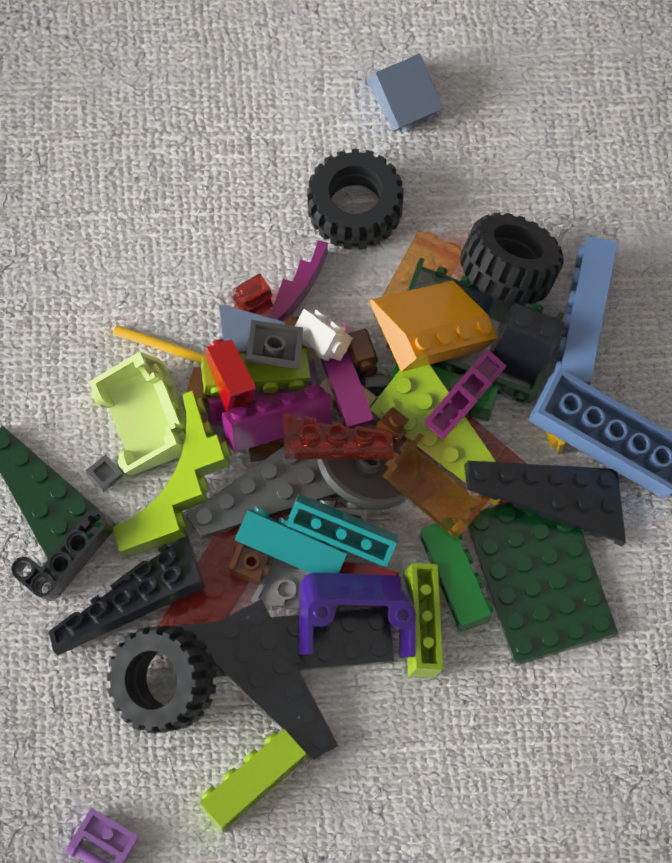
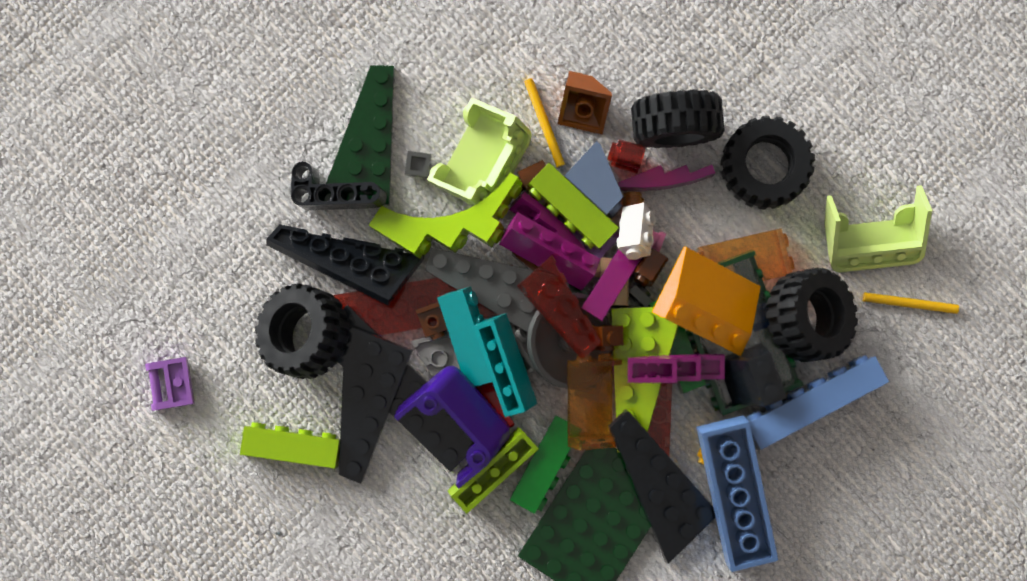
camera: 50 degrees right, 15 degrees up
(177, 299) = (584, 103): none -> dark orange slope
(230, 374) = (548, 193): red slope -> none
(258, 230) = (677, 118): none -> black tyre
(274, 344) = (596, 207): dark grey slope -> none
(405, 93) = (884, 127): sand blue slope -> none
(498, 169) = (880, 242): none -> yellowish green windscreen
(565, 187) = (910, 303): none -> yellow bar

